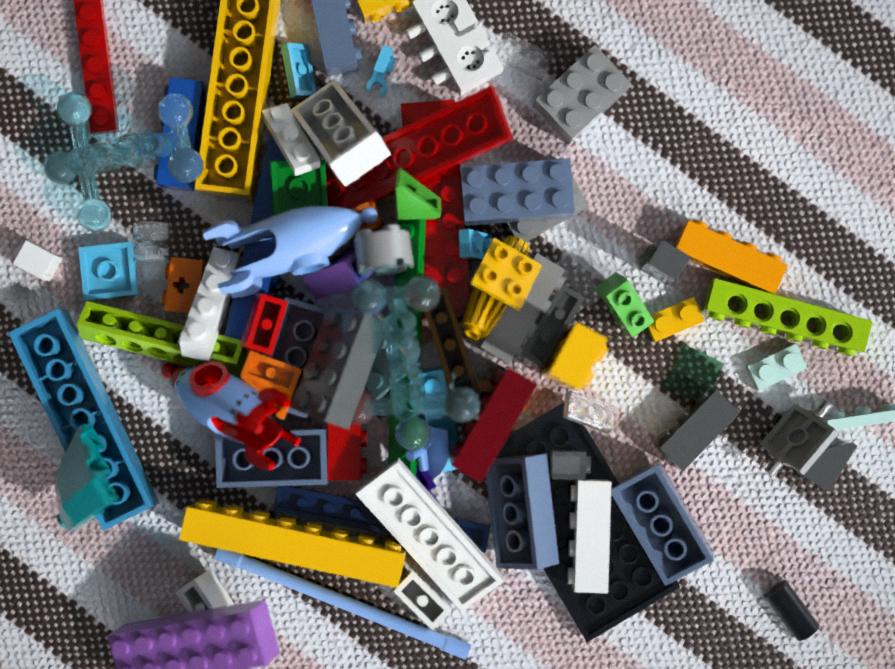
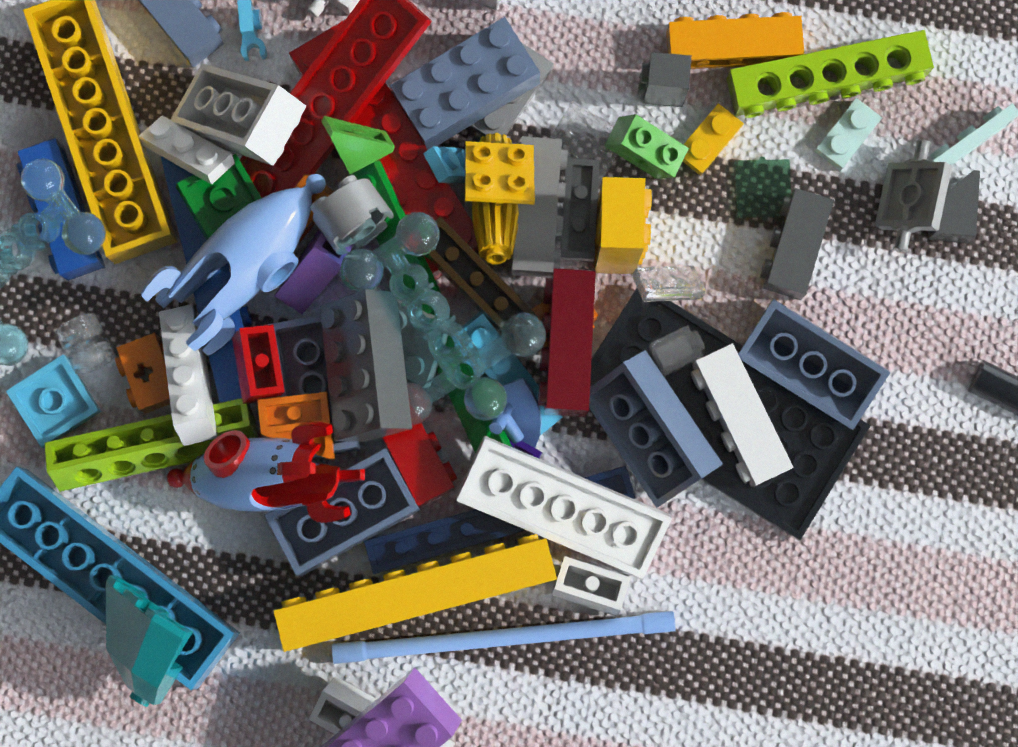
camera: 25 degrees left, 5 degrees down
(298, 70) = (157, 75): medium azure plate -> none

